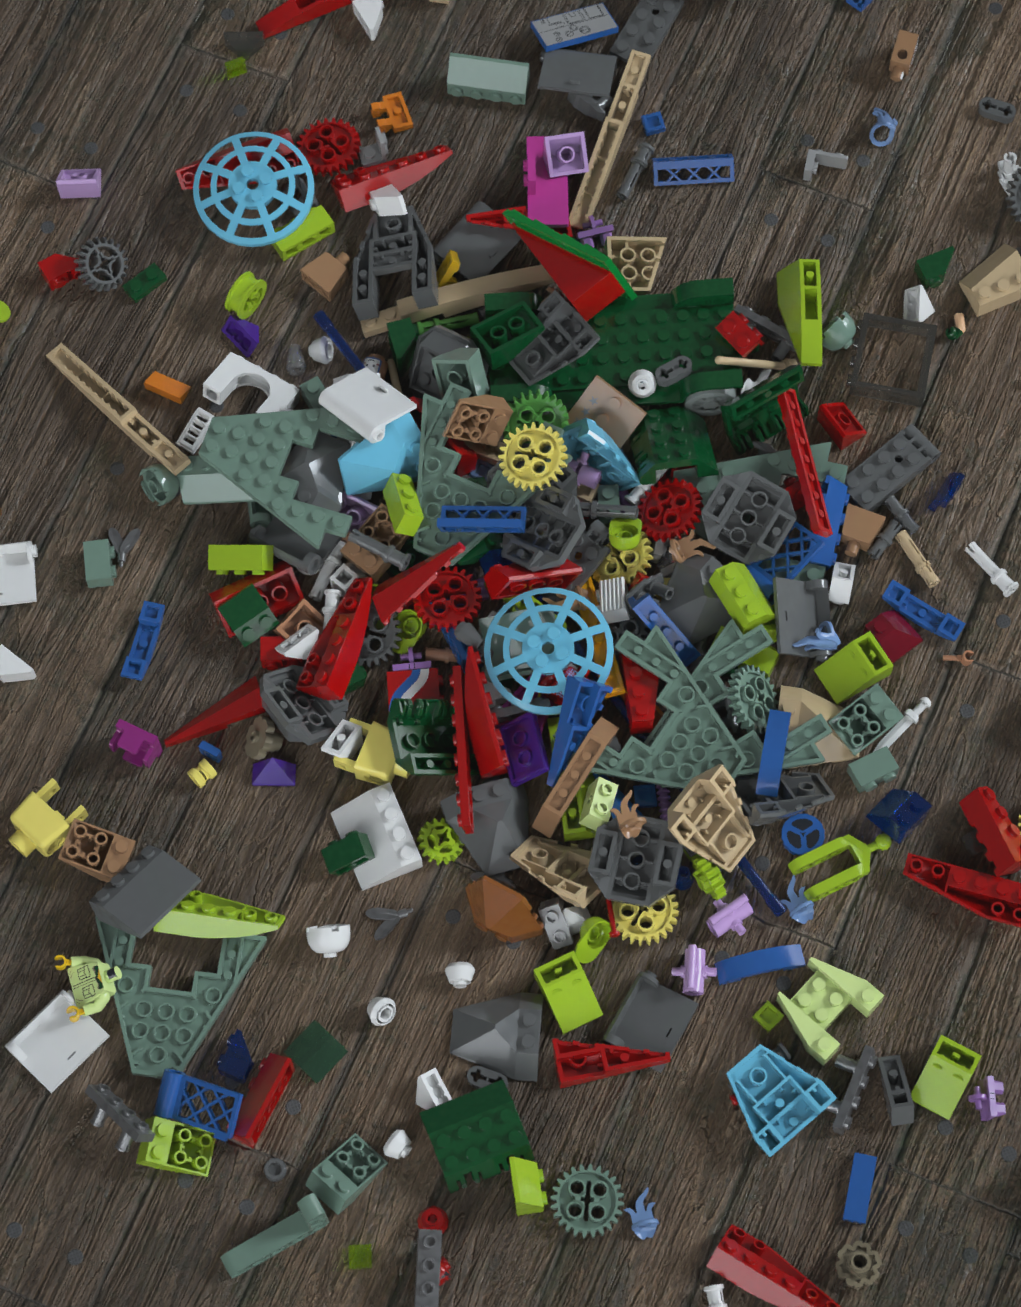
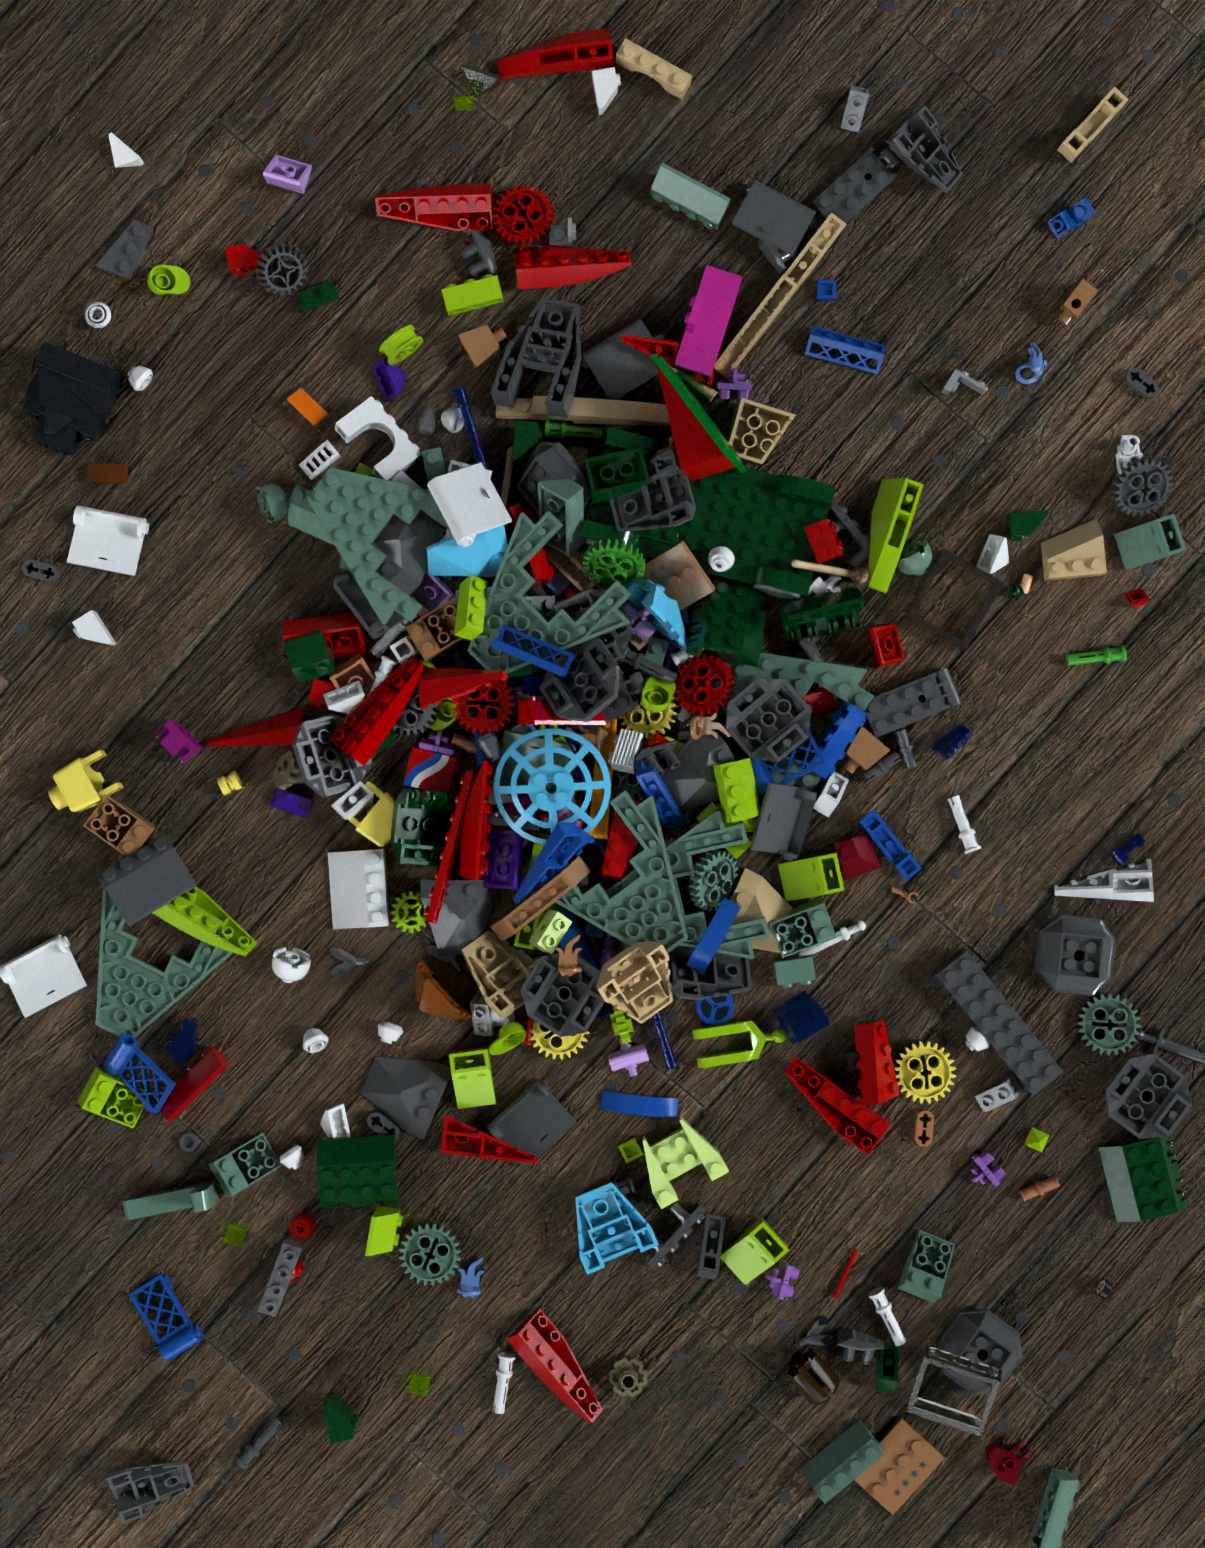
camera: 20 degrees right, 20 degrees up
(90, 982) = (82, 939): yellowish green torso -> none
(98, 563) = (198, 559): sand green brick -> none
(111, 1105) = (70, 1052): flat silver plate -> none
(118, 410) = (255, 418): tan slope -> none
(123, 547) = (225, 548): flat silver piece -> none
(144, 641) = (215, 646): blue slope -> none
(210, 751) = (243, 766): blue tile -> none
(240, 559) = (319, 600): lime brick -> none
(256, 198) = (448, 249): medium azure dish -> none
(315, 1051) = (251, 1055): clear green slope -> none
(347, 853) = (329, 898): dark green brick -> none
(376, 364) = (494, 454): head -> none
(387, 201) = (556, 294): white slope -> none
(388, 553) = (444, 649): dark grey pin -> none
(397, 113) = (597, 200): orange plate -> none
(446, 270) = (588, 381): yellow hinge -> none
(479, 419) = (563, 553): medium nougat slope -> none
(527, 474) = (585, 627): light yellow gear -> none
(565, 154) = (733, 302): lavender slope -> none
(574, 27) = (787, 167): light grey tile -> none
(638, 163) = (798, 327): dark grey pin -> none
(673, 371) = (751, 552): dark grey beam -> none
(694, 971) = (582, 1094): lavender pin -> none
(799, 907) = (689, 1066): medium blue piece -> none
(804, 464) = (835, 686): red plate -> none
(822, 641) = (792, 847): medium blue piece -> none
(859, 1188) = (652, 1315): blue tile -> none
(921, 565) = (903, 793): tan pin -> none

